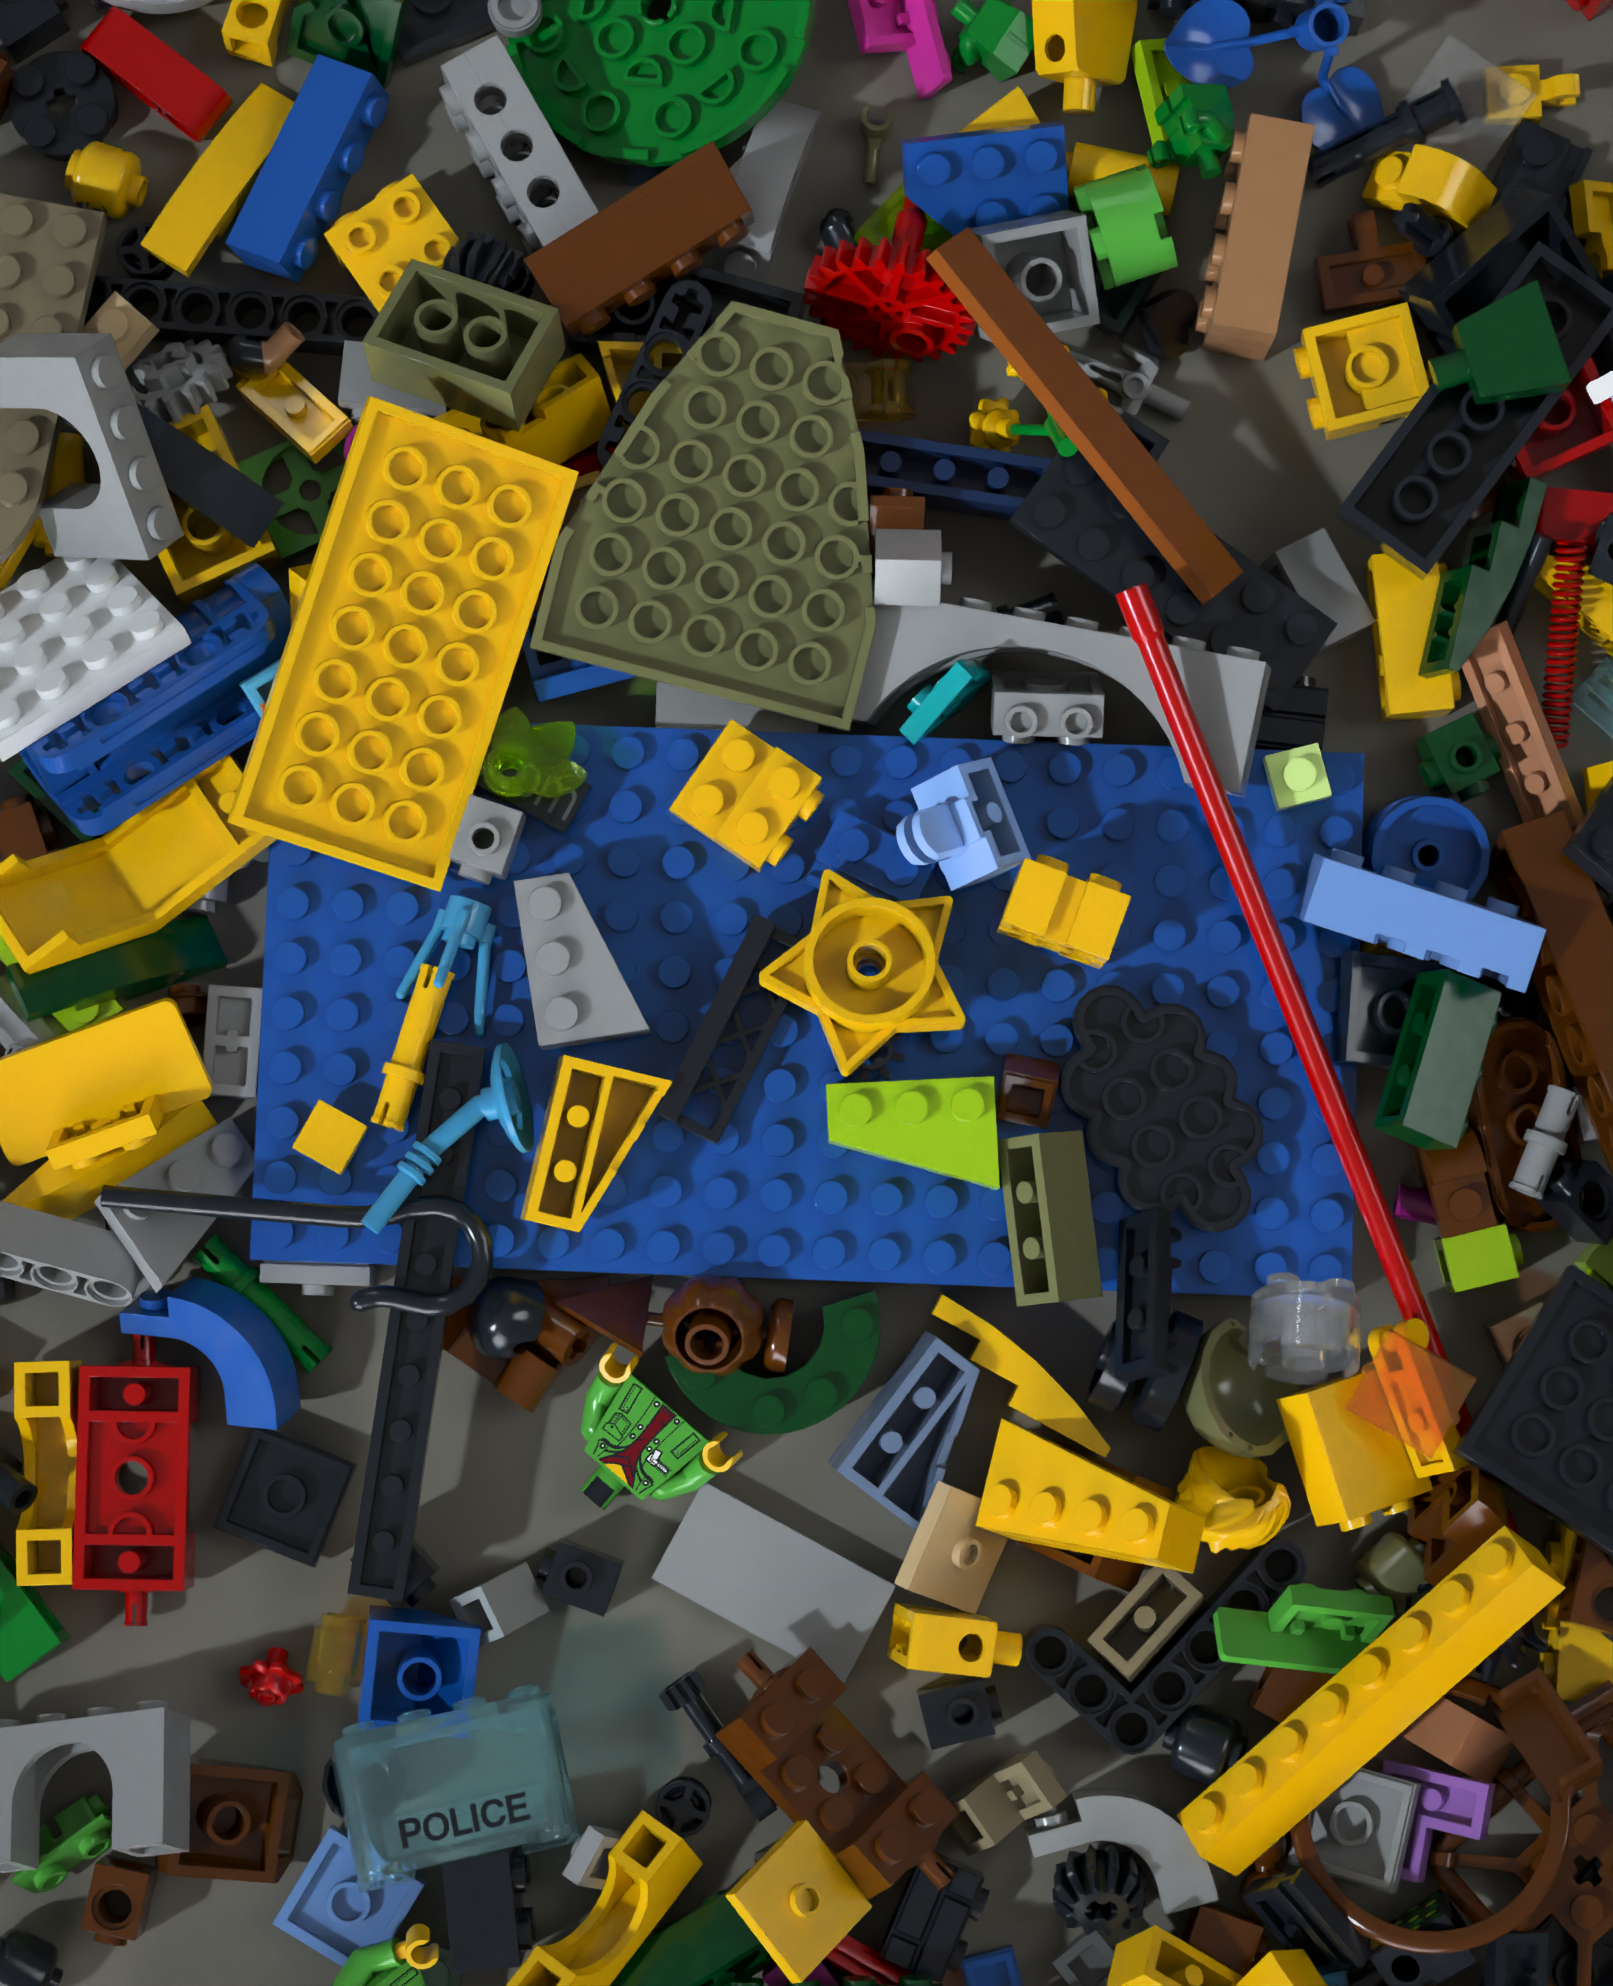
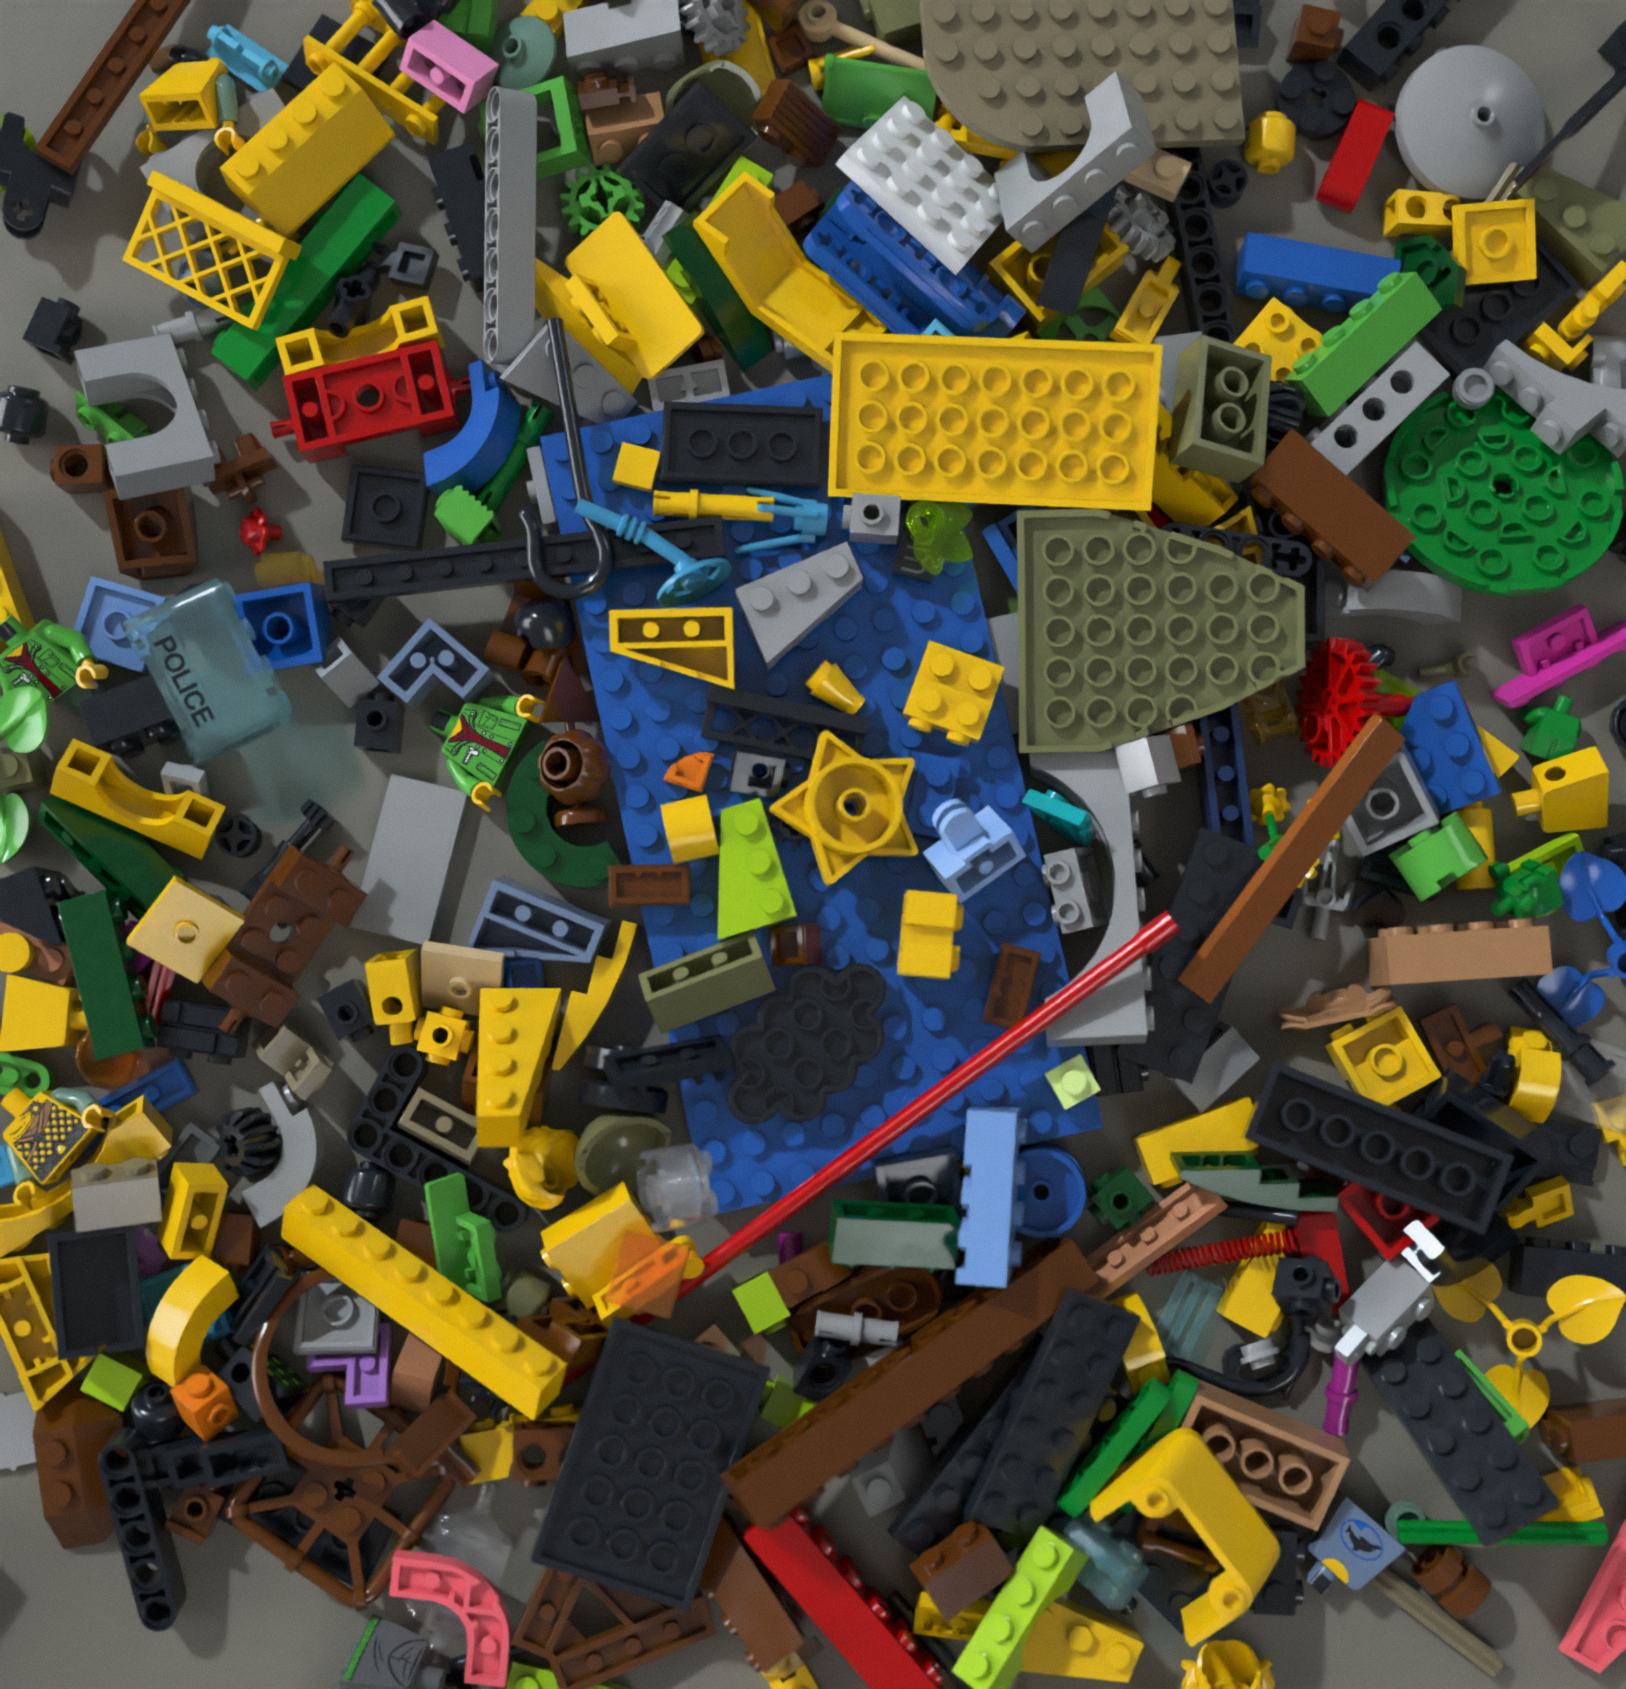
camera: 75 degrees right, 0 degrees up
(172, 1661) = (244, 473): none -> reddish brown hips
(218, 182) = (1288, 216): yellow slope -> none
(263, 356) = (1174, 278): arm -> none
(336, 1385) = (467, 517): none -> bright green brick
(337, 989) = (741, 445): none -> black tile
(422, 135) = (1363, 342): none -> bright green brick
(511, 1475) = (433, 658): none -> sand blue brick
(700, 950) = (834, 688): none -> yellow cone
(760, 1169) = (690, 771): none -> orange tile
(804, 1073) = (768, 784): none -> black brick
(841, 1188) = (690, 829): none -> yellow piece
(899, 1262) = (649, 885): none -> reddish brown plate
(969, 1464) = (524, 973): none -> blue tile
(1008, 1575) = (459, 1035): none -> yellow brick
(1154, 822) = (1011, 986): none -> reddish brown plate
(1277, 429) = (1336, 1007): none -> medium nougat piece
(1505, 351) = (1424, 1150): dark green torso -> none

